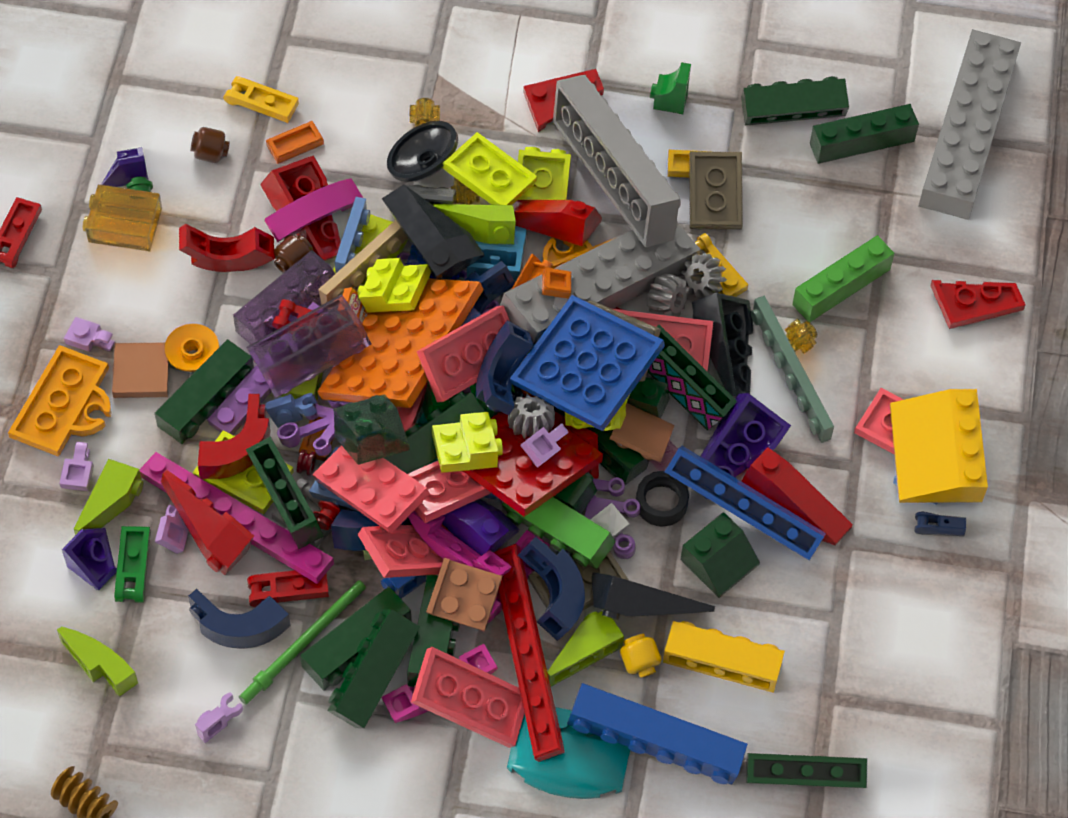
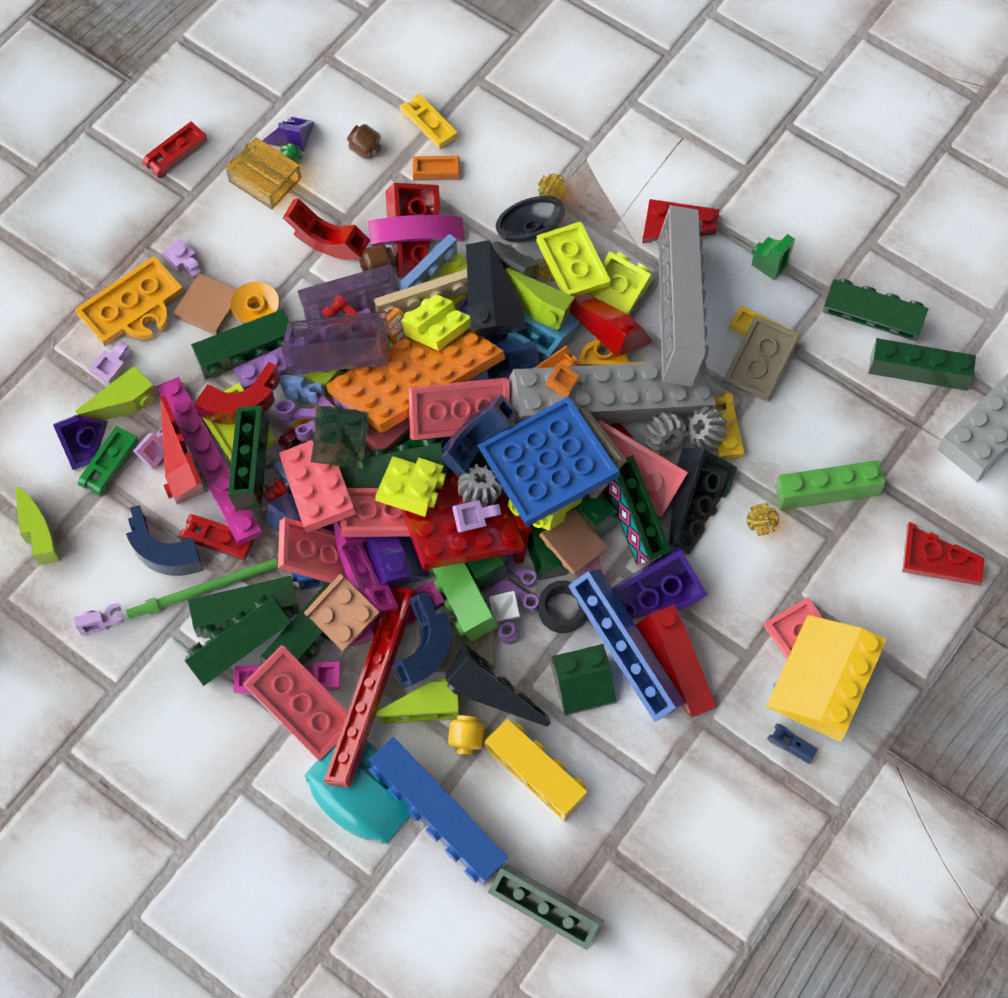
camera: 30 degrees right, 5 degrees up
(794, 372) = (737, 555): sand green plate -> none

